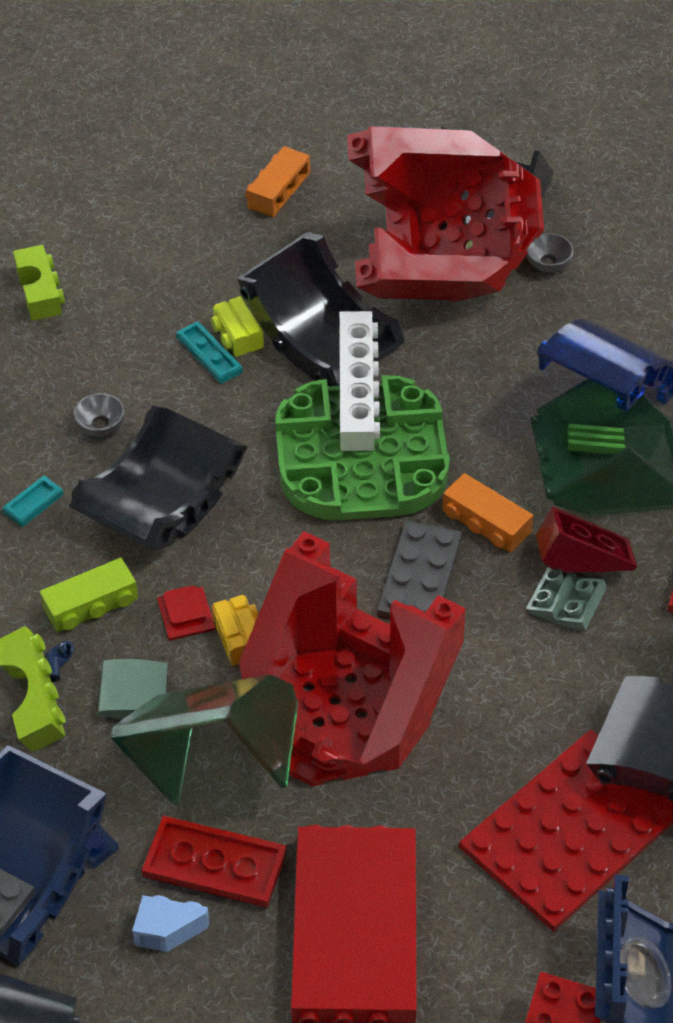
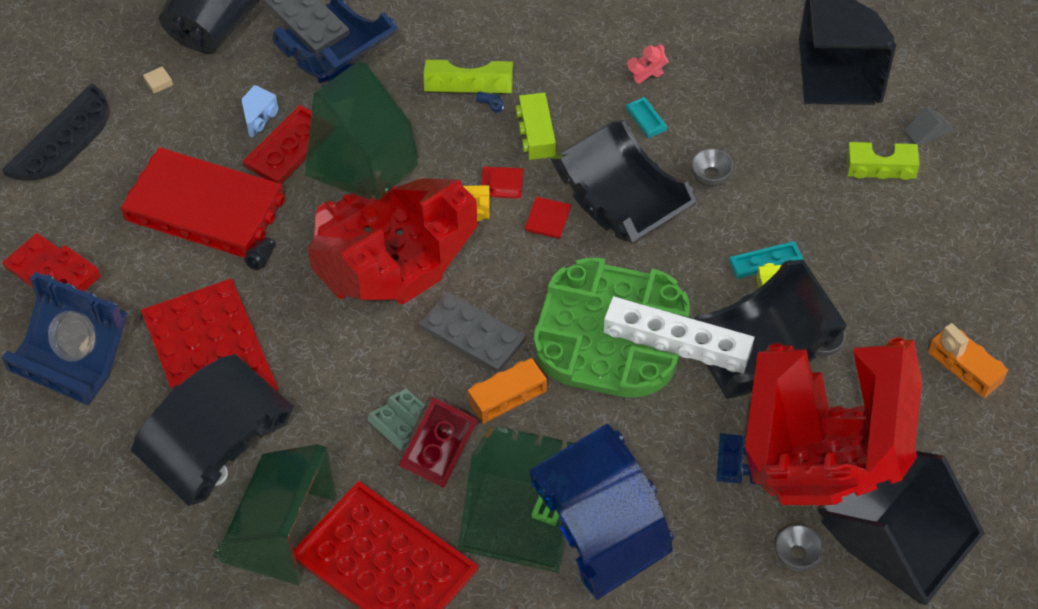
camera: 110 degrees right, 5 degrees up
(129, 685) = (444, 133): sand green slope -> none
(226, 549) = (548, 217): none -> red piece
(275, 175) = (954, 340): none -> tan plate
(409, 819) = (259, 254): none -> black cone
(471, 325) = (730, 459): none -> clear blue plate

